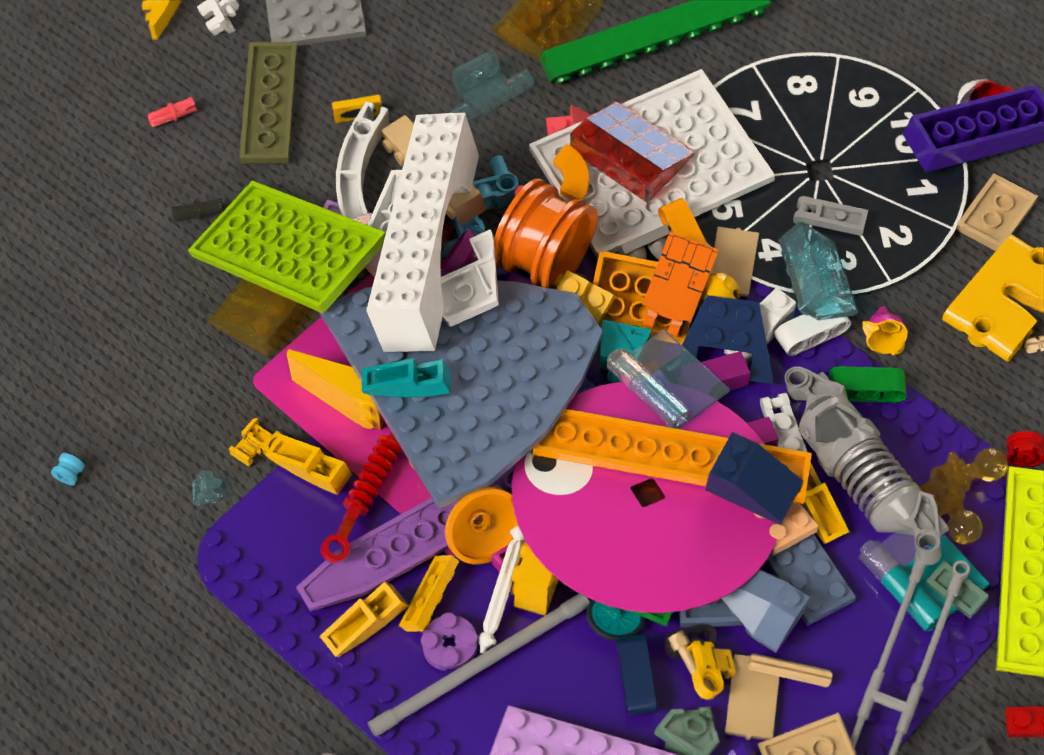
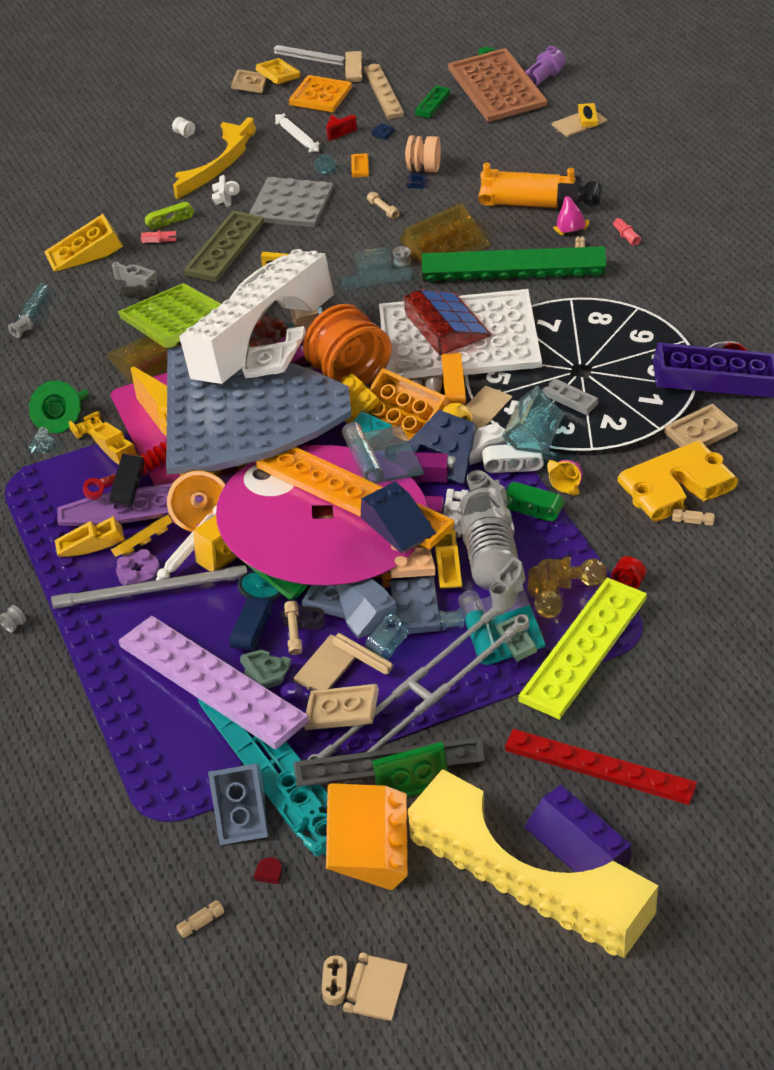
camera: 25 degrees right, 15 degrees down
(64, 278) = (40, 291): none -> clear light blue pin
(69, 313) = (21, 326): none -> light grey bush
(78, 157) = (85, 245): none -> yellow slope
(166, 72) = (163, 213): none -> lime beam
(179, 187) = (135, 275): none -> light grey piece
(200, 431) = (55, 405): none -> green piece
(372, 522) = (127, 480): none -> black beam
(407, 379) = (192, 393): teal slope -> none
(510, 50) = (402, 256): none -> light grey wheel
(574, 172) = (397, 325): light orange tile -> none
(678, 282) = (426, 396): orange tile -> none
(709, 666) = (303, 629): yellow piece -> none
(807, 645) = (387, 638): none -> clear light blue piece
(865, 584) = (451, 618): none -> clear light blue bush

